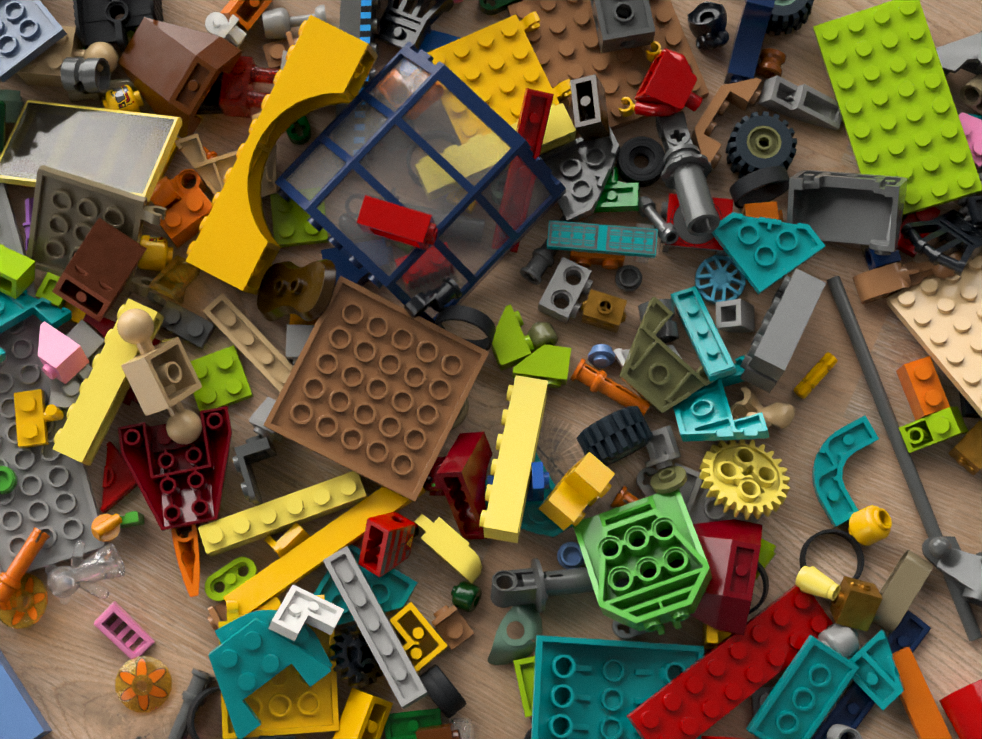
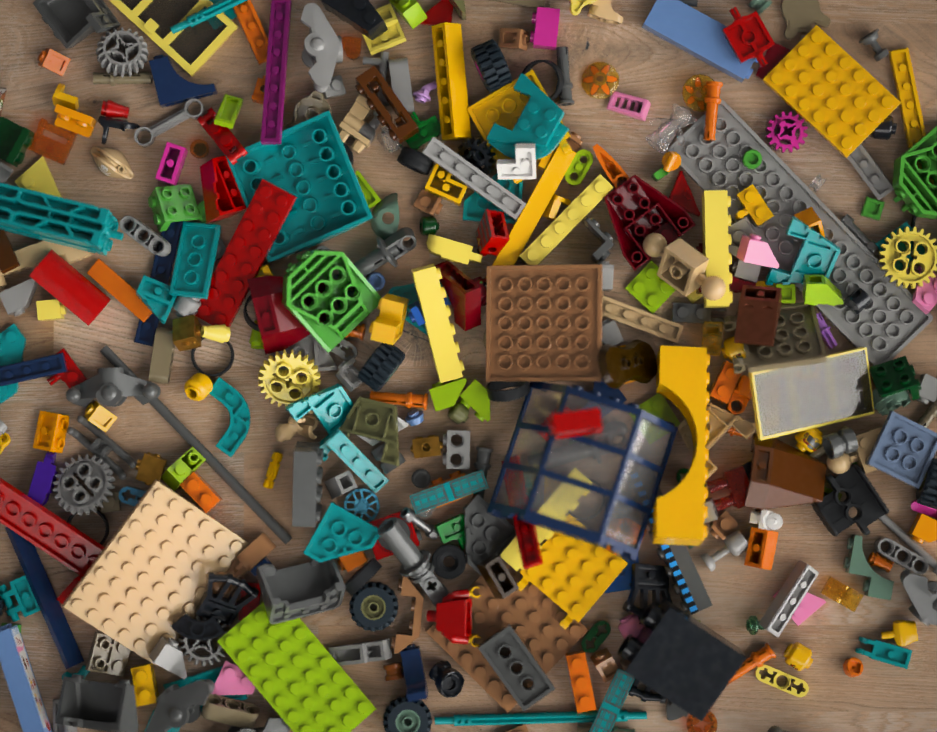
camera: 155 degrees right, 10 degrees up
(435, 299) = (533, 396): black connector -> none
(668, 479) = (335, 355): olive piece -> none

